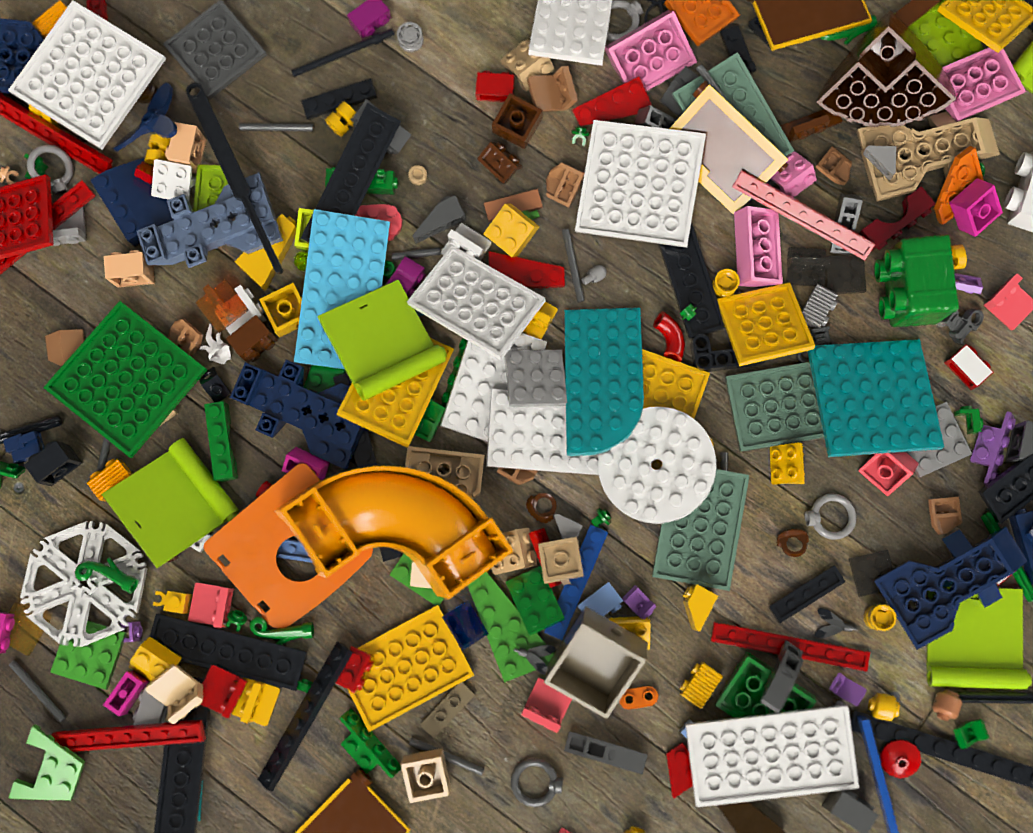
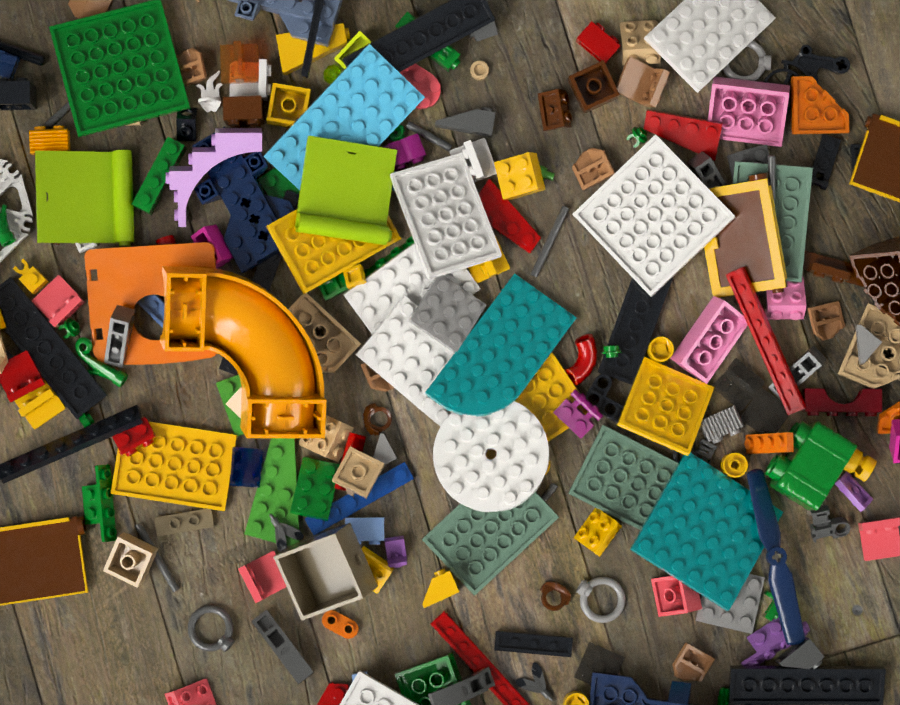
camera: 30 degrees right, 5 degrees up
(256, 372) = (227, 144): none -> lavender arch
(280, 595) = (119, 335): none -> dark grey slope
(439, 404) = (354, 276): none -> yellow tile
(523, 201) = (547, 157): nougat tile -> none
(595, 274) = (561, 262): light grey cylinder -> none
(603, 517) = (419, 463): green plate -> none
(700, 387) = (574, 417): none -> magenta plate
(700, 685) = (396, 650): yellow brick -> none
(853, 330) = (733, 465): none -> yellow wheel
(872, 289) = (769, 443): none -> orange plate
(959, 389) = (779, 576): none -> dark blue piece
(969, 367) = (804, 563): white brick -> none

